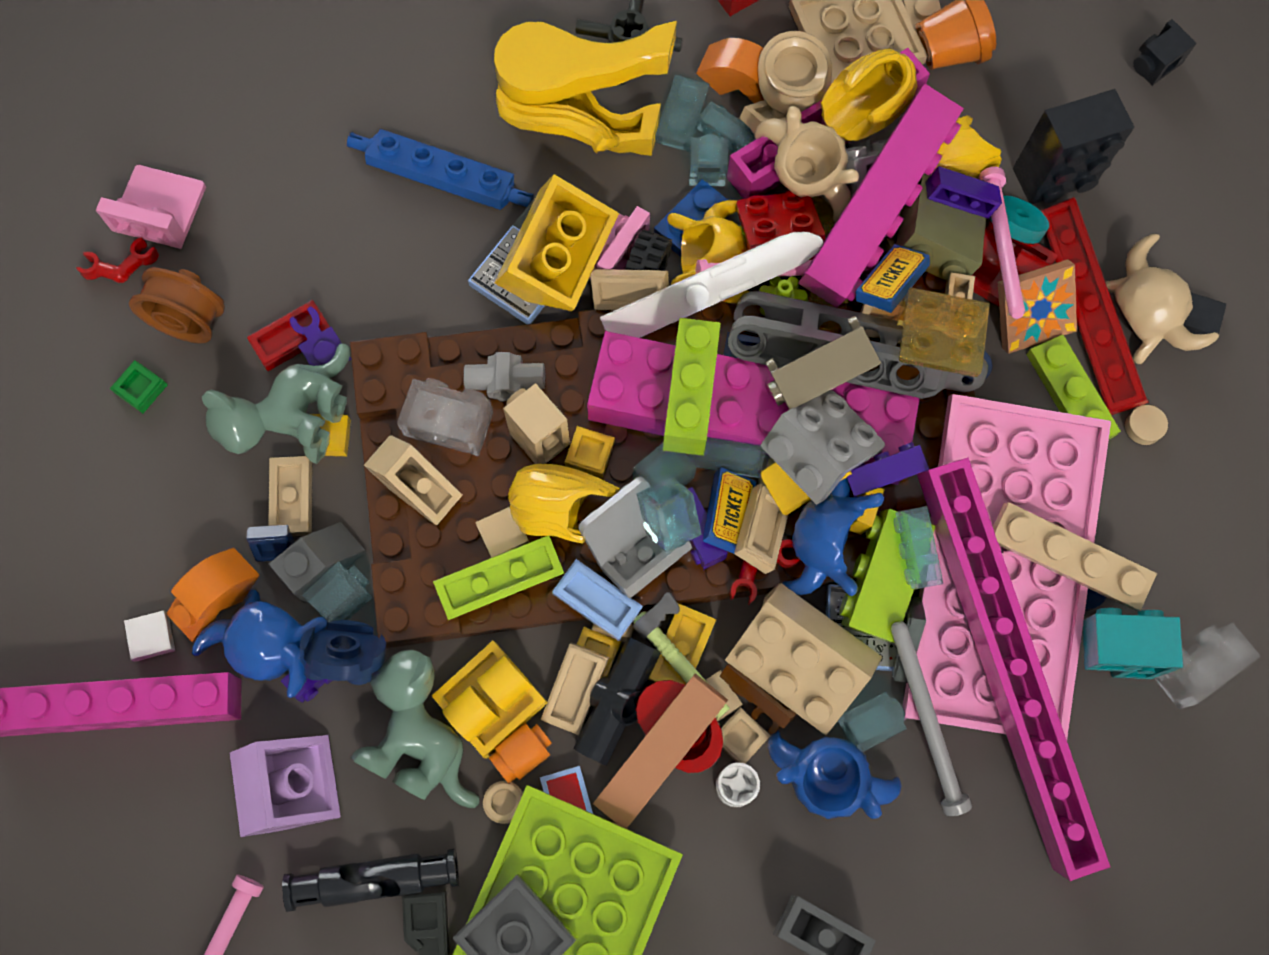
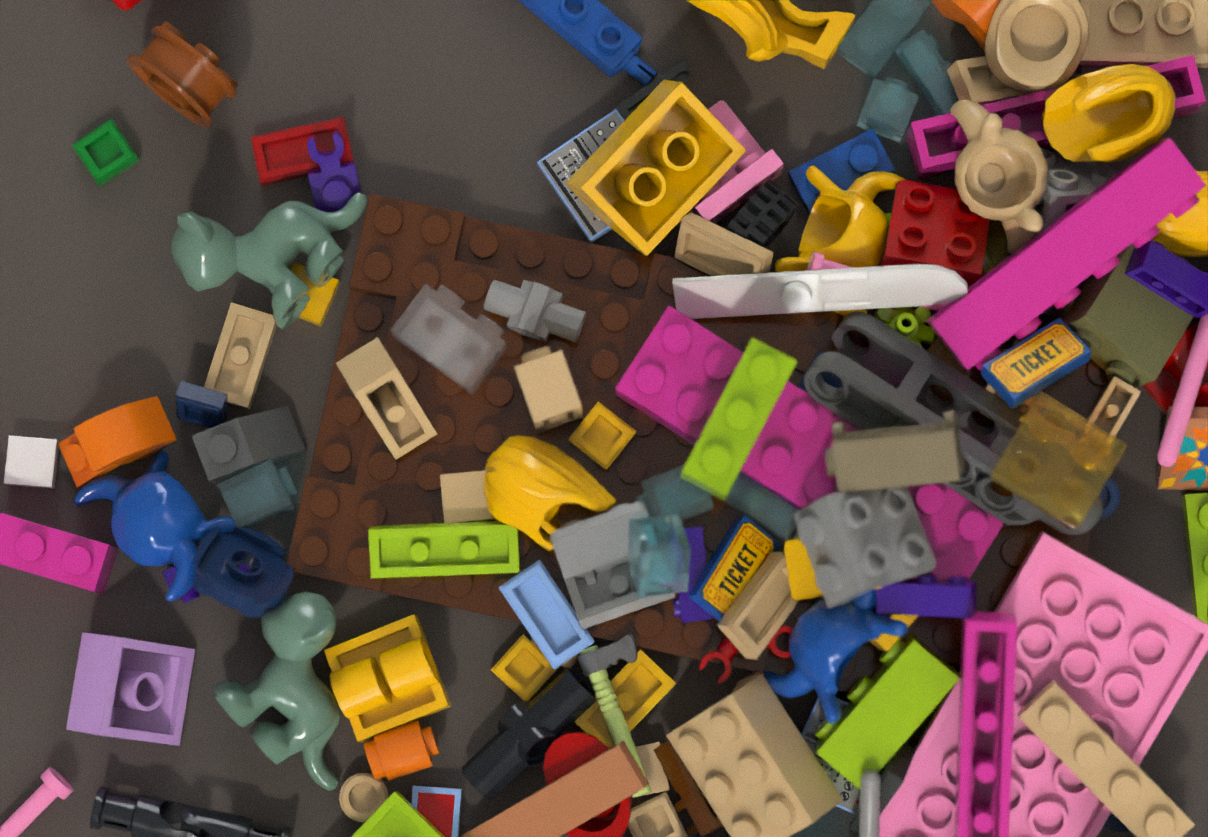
camera: 25 degrees right, 10 degrees up
(572, 689) = (486, 699): tan tile -> none
(918, 548) = (926, 698): clear light blue piece -> none

